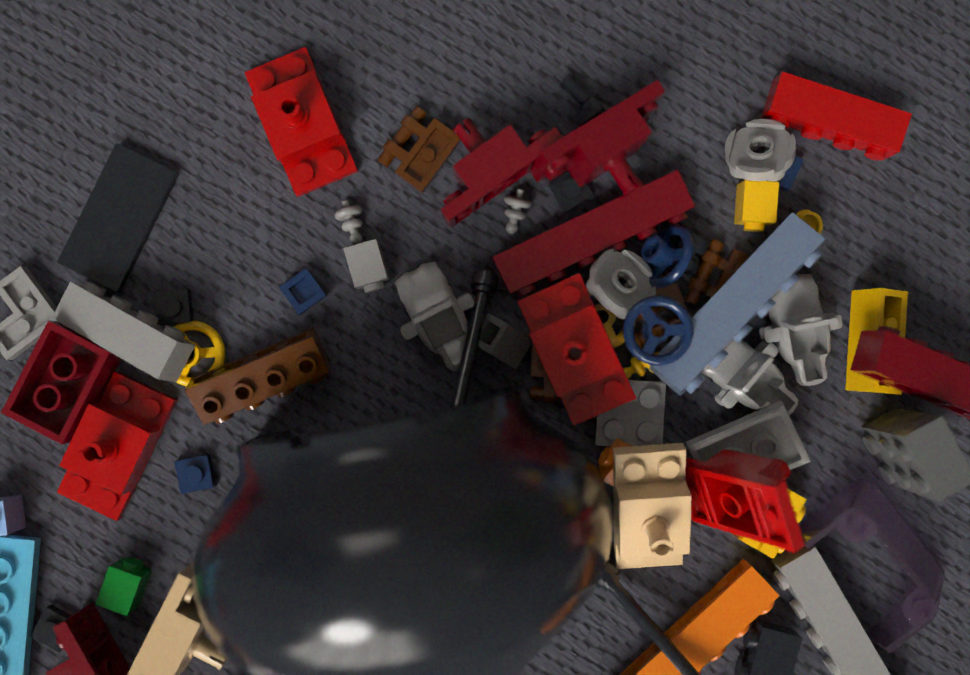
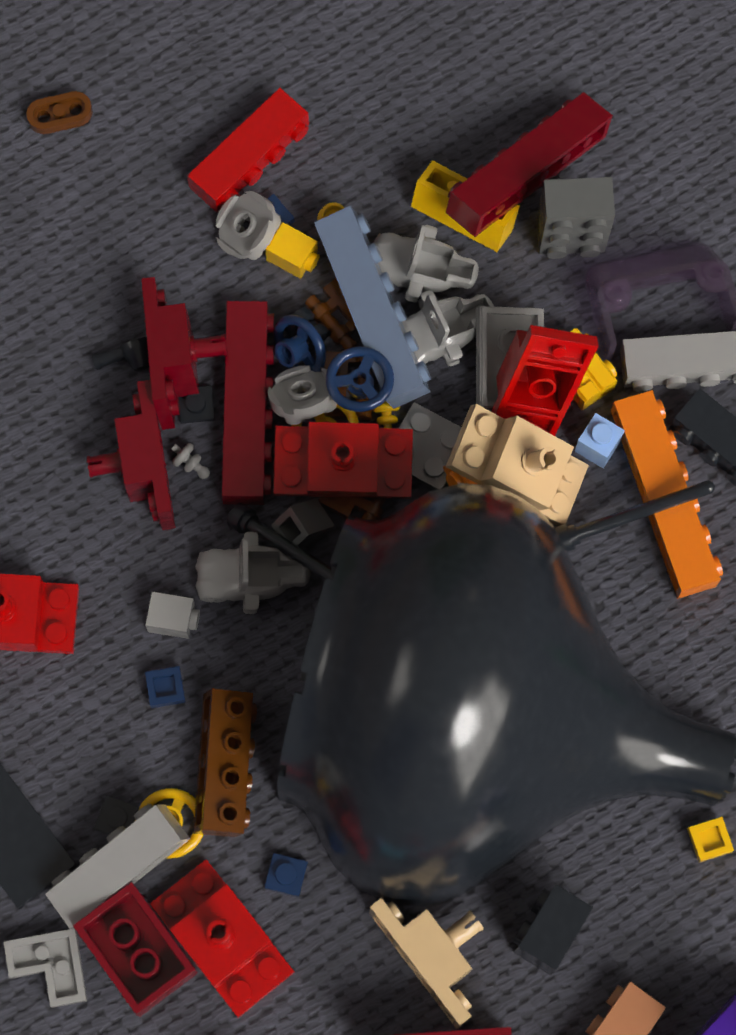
camera: 60 degrees left, 15 degrees down
(124, 586) = (360, 991): green brick -> none
(351, 224) = (125, 613): light grey hair -> none
(427, 155) = (99, 515): reddish brown plate -> none
(709, 566) = (599, 440): none -> light blue brick

